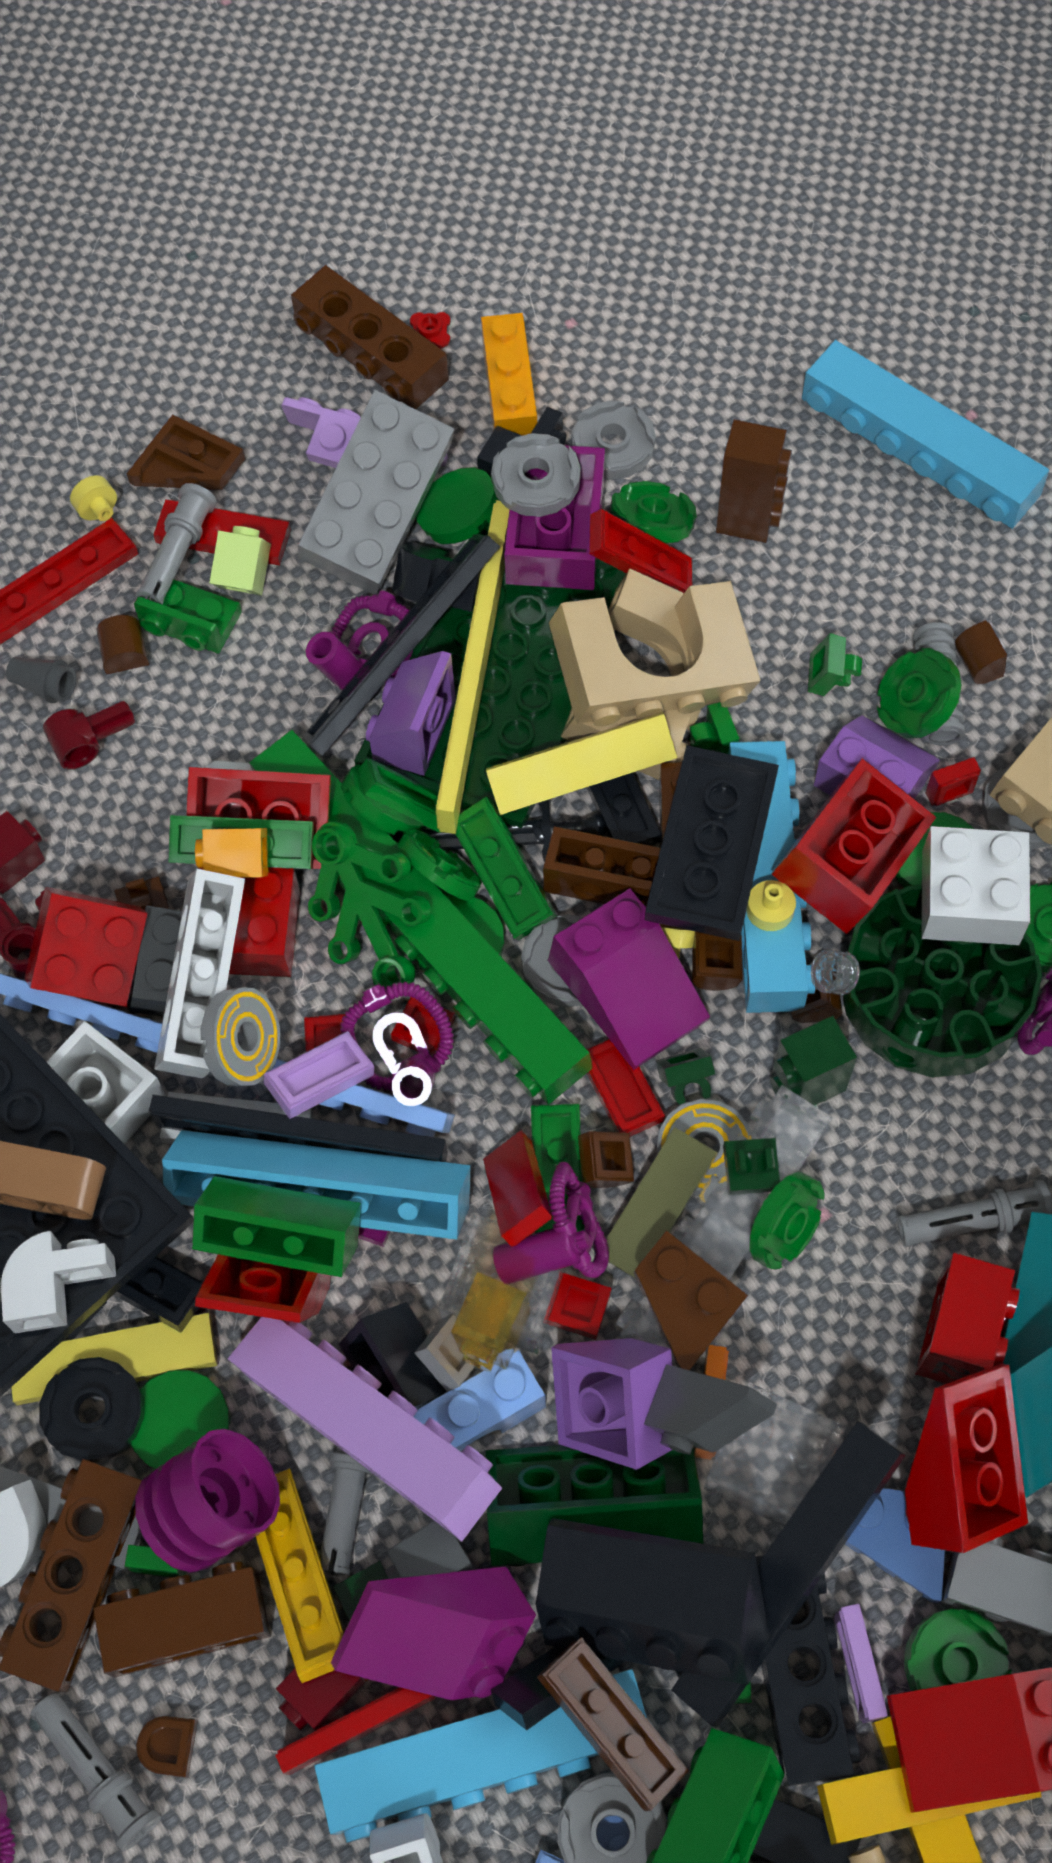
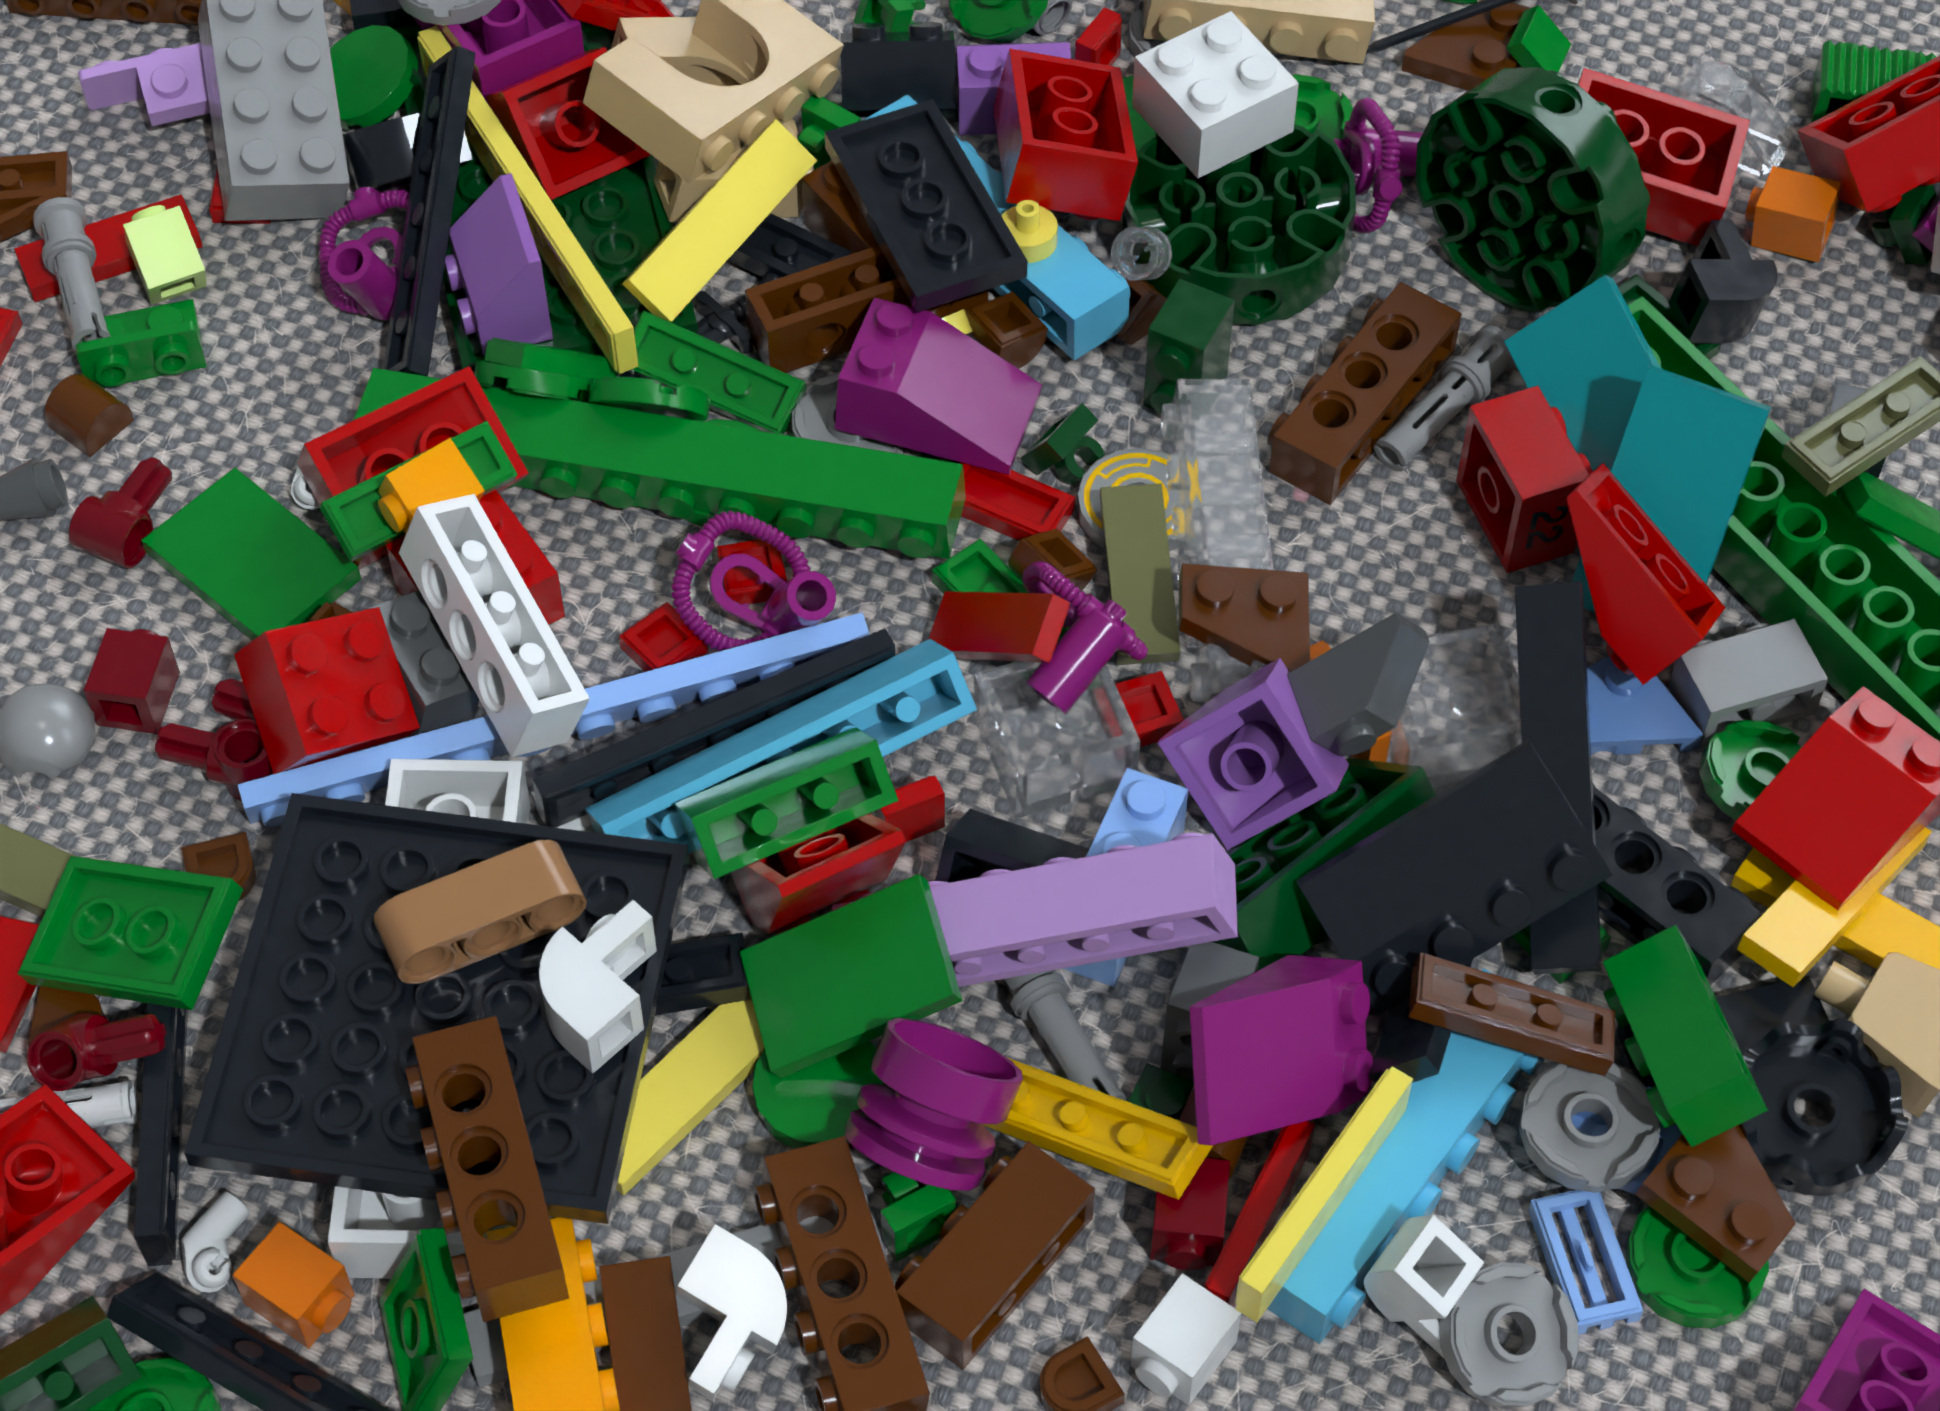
camera: 40 degrees left, 10 degrees down
(110, 1433) = (724, 1165): black tile -> none
(131, 809) = (250, 557): none -> green tile
(232, 1372) = (850, 975): none -> green tile
(242, 1773) = (1184, 1340): none -> white brick
(261, 1036) = (603, 662): light grey tile -> none
(318, 1074) = (697, 654): lavender tile -> none
(362, 900) = (593, 472): green plant -> none
(375, 1273) = (918, 809): none -> red tile
(384, 1755) = (1322, 1194): none -> light yellow tile
(442, 1356) = (1060, 813): light grey plate -> none
(490, 1323) = (1094, 727): clear yellow brick -> none
(526, 610) = (557, 132): none -> red slope
(751, 1166) = (1213, 461): dark green tile -> none
(786, 1220) = (1282, 498): green tile -> none
(797, 713) = (889, 65): none -> black brick
(860, 1664) = (1685, 827): lavender tile -> none
(986, 1134) = (1362, 392): none -> reddish brown brick

